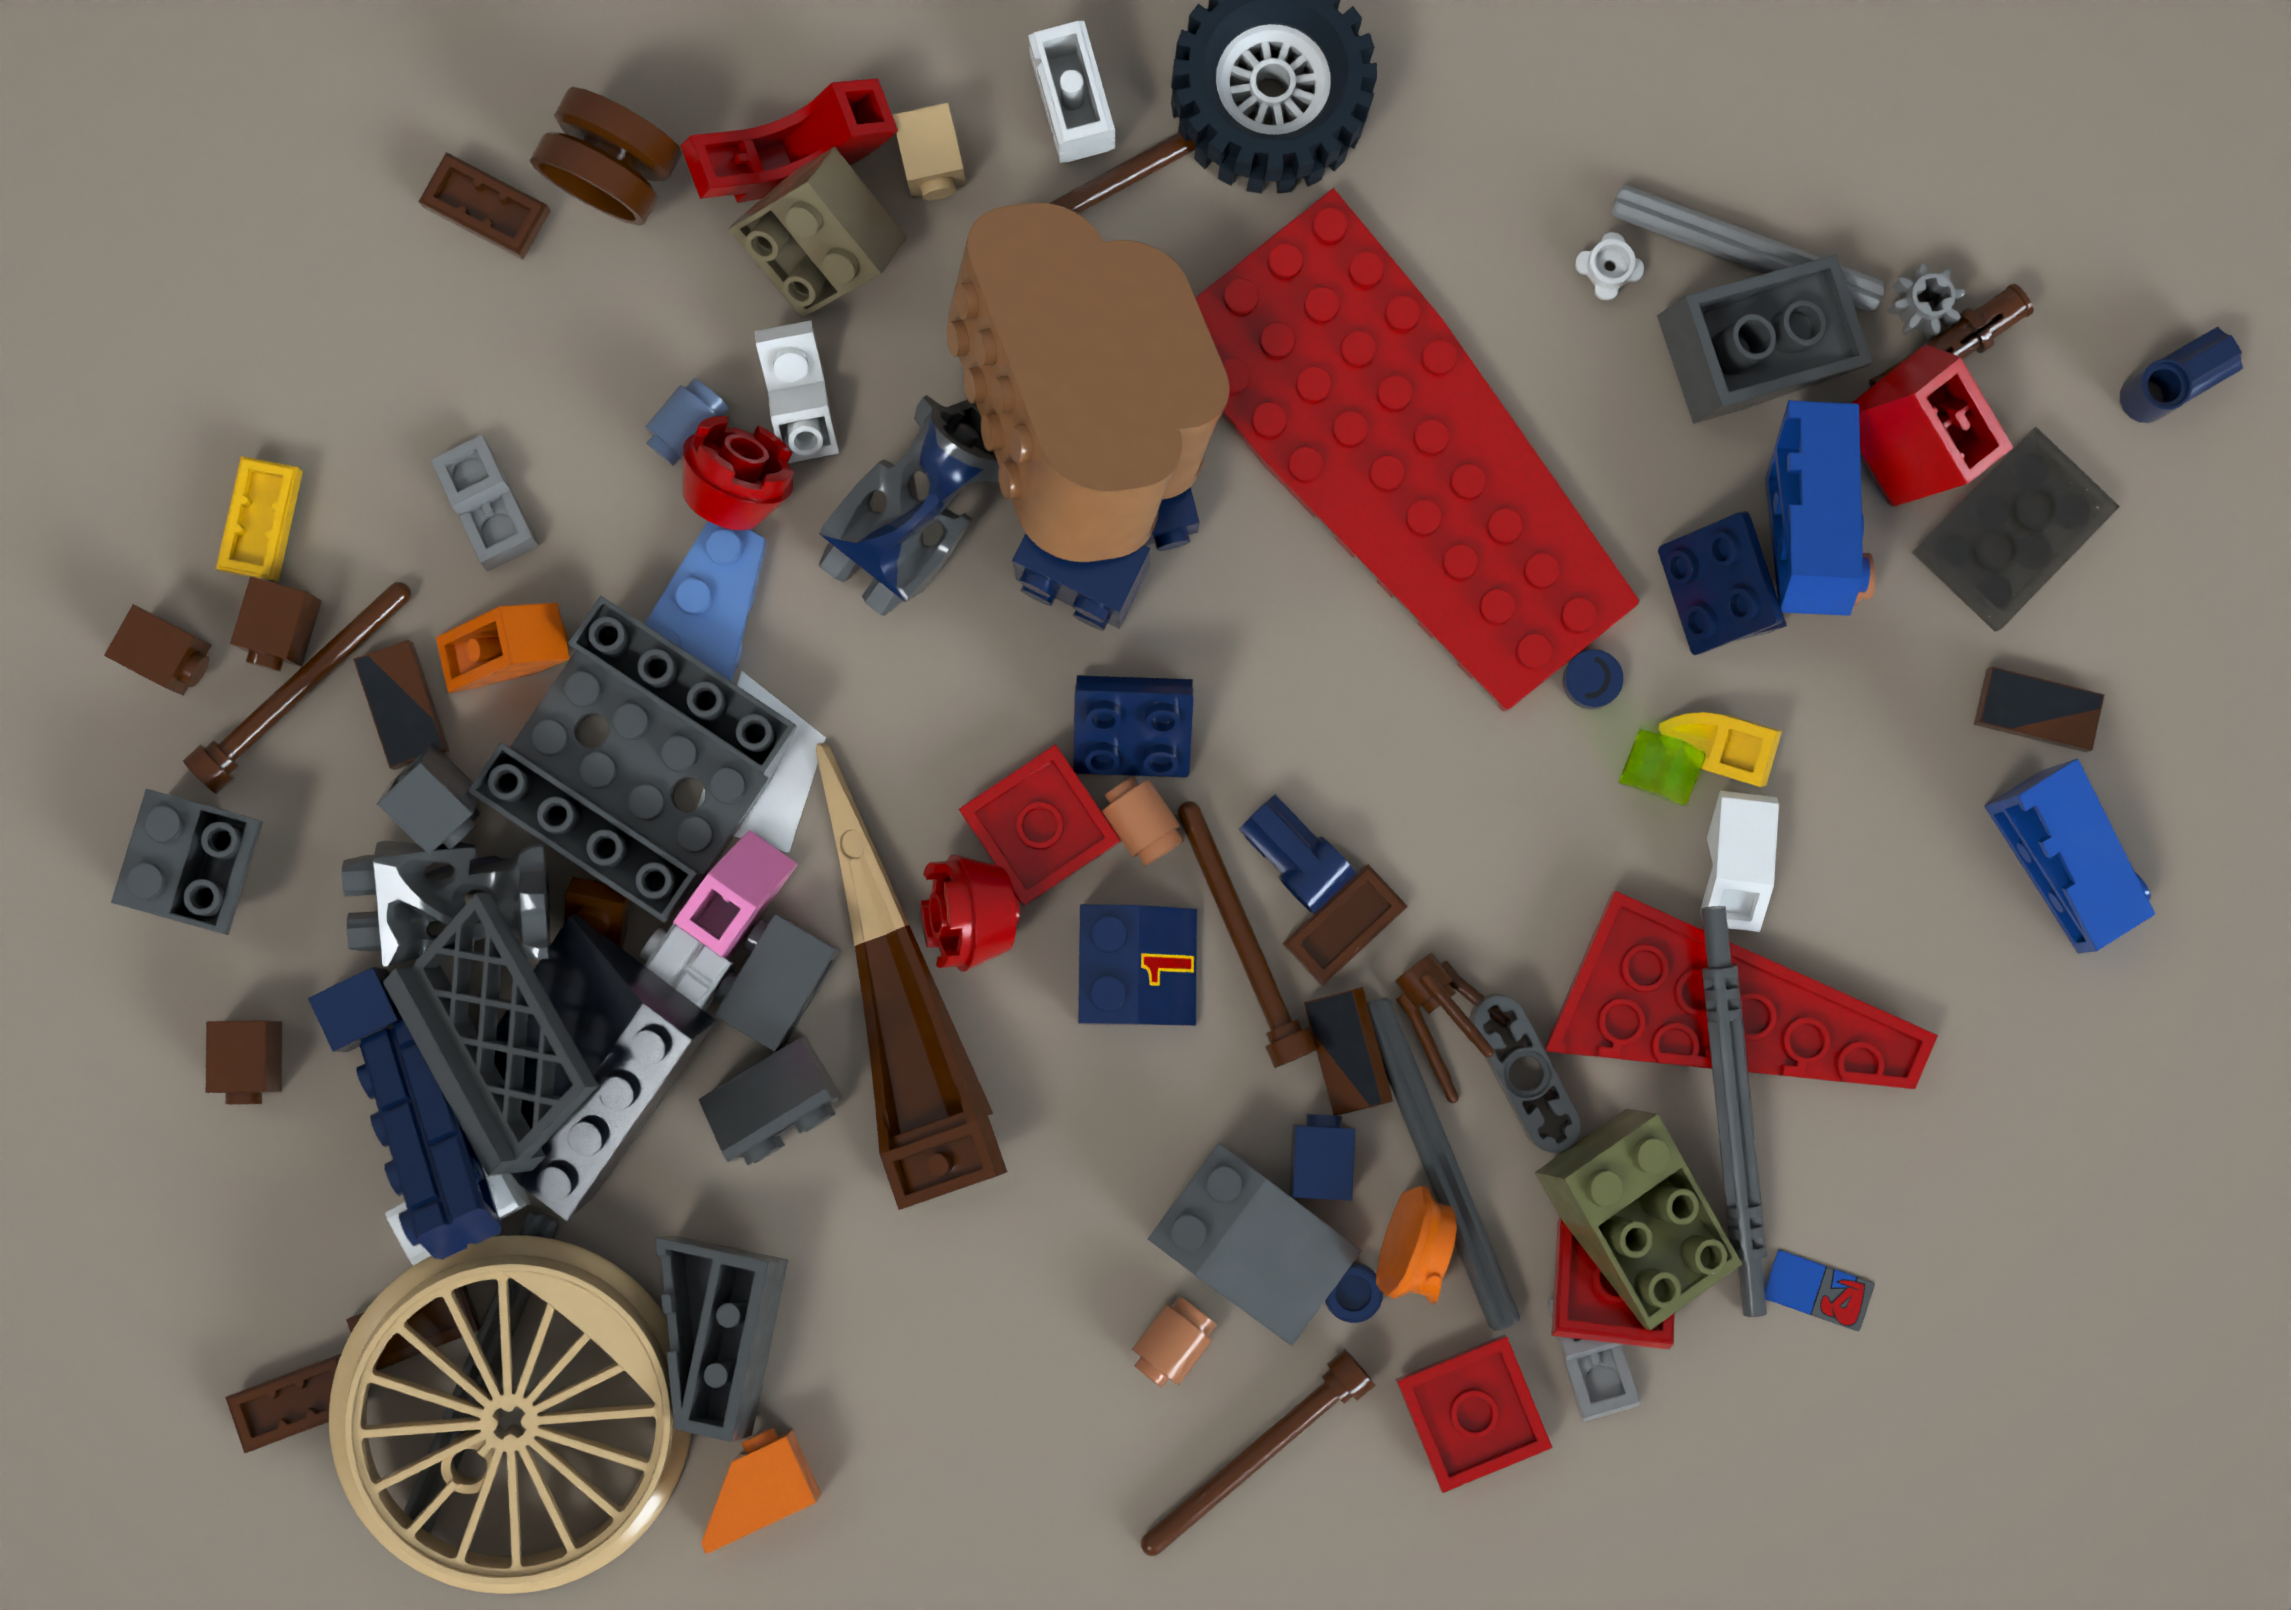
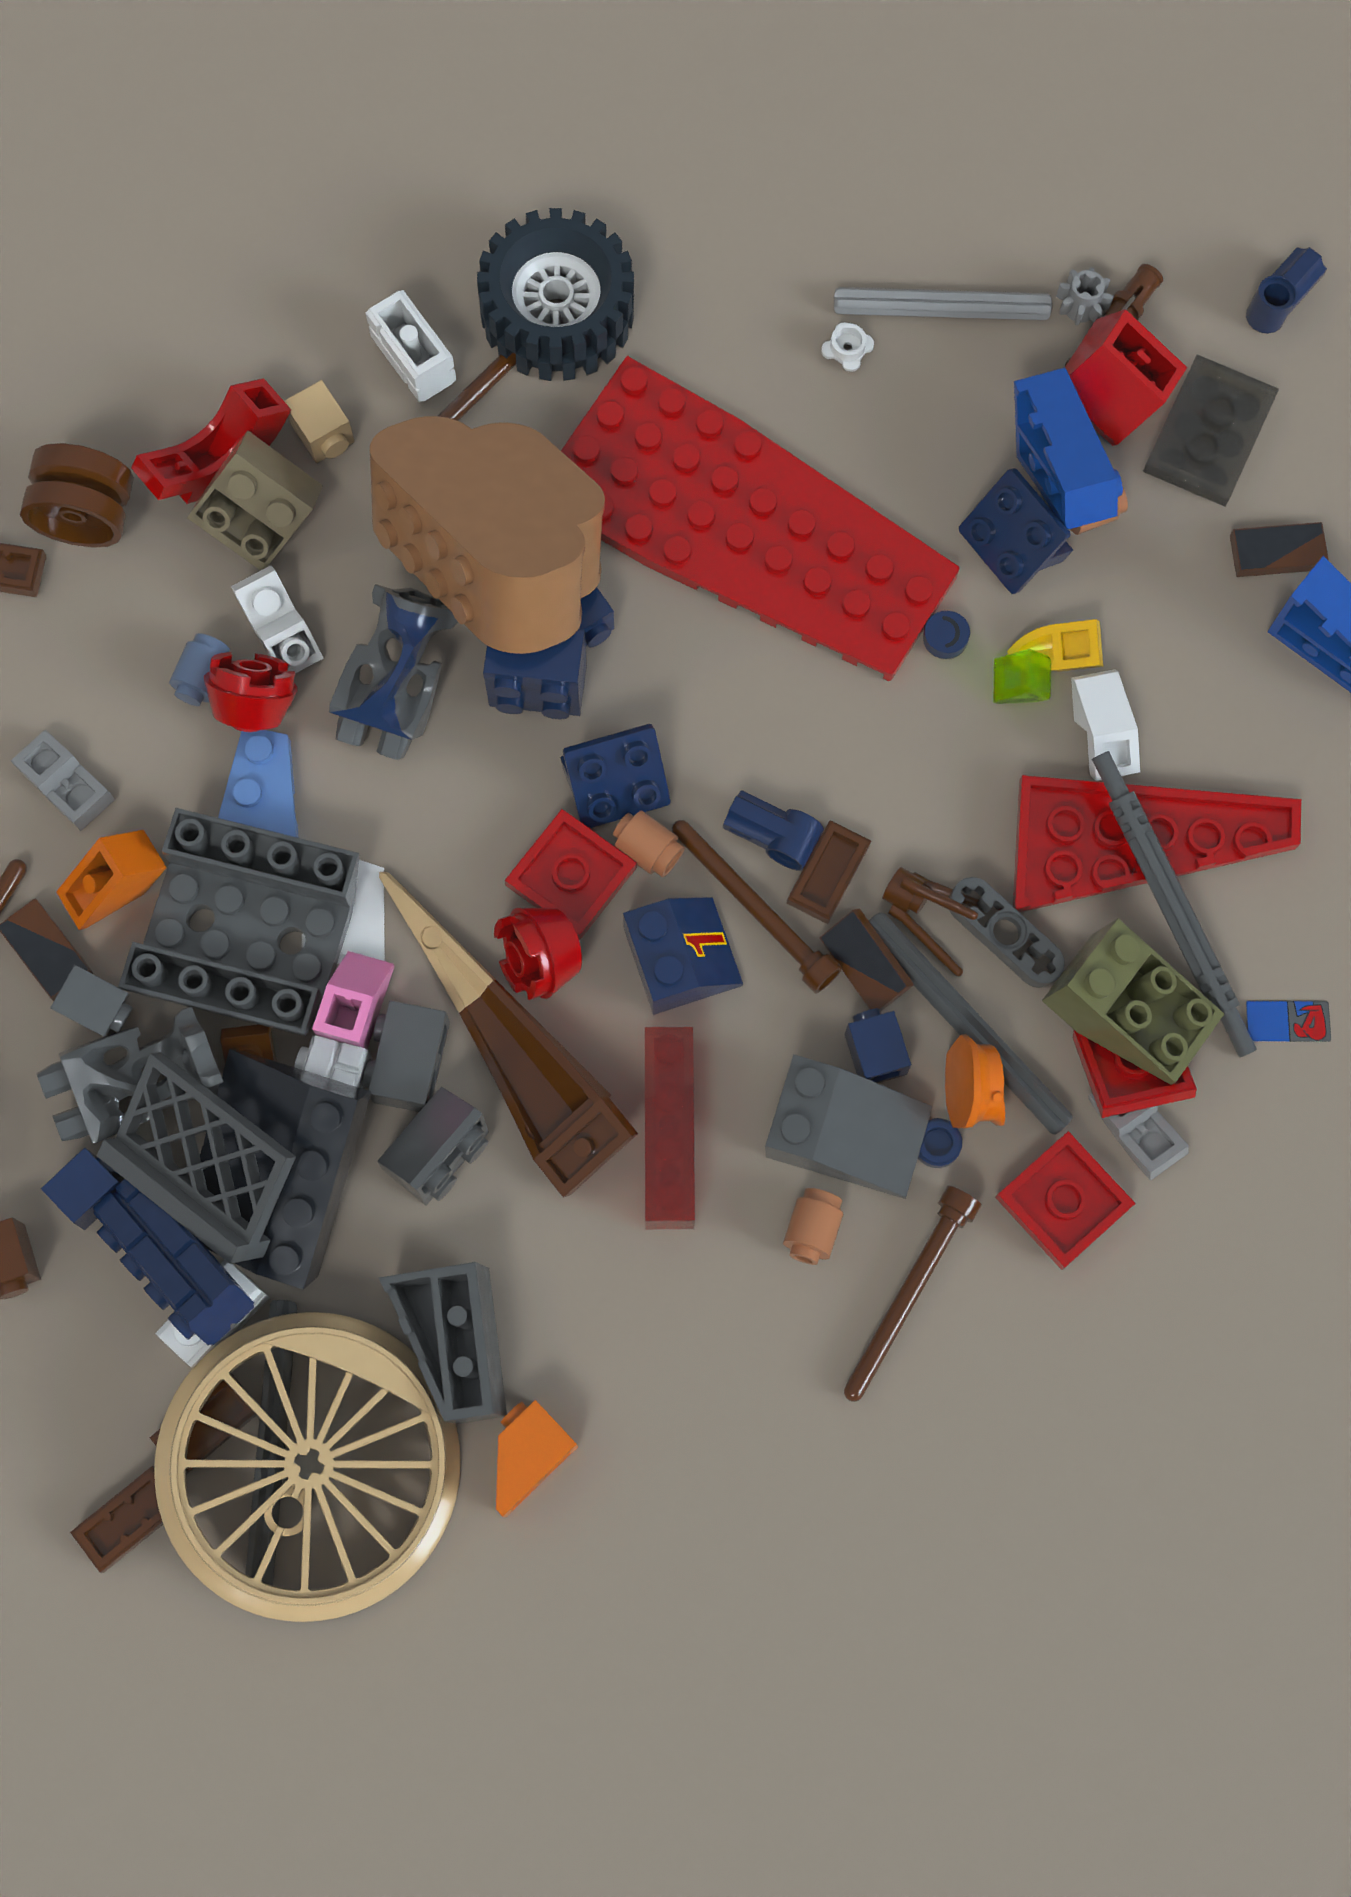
camera: 15 degrees left, 10 degrees down
(1046, 1174) = (669, 1128): none -> clear red brick
(1763, 337) = (976, 355): dark grey slope -> none

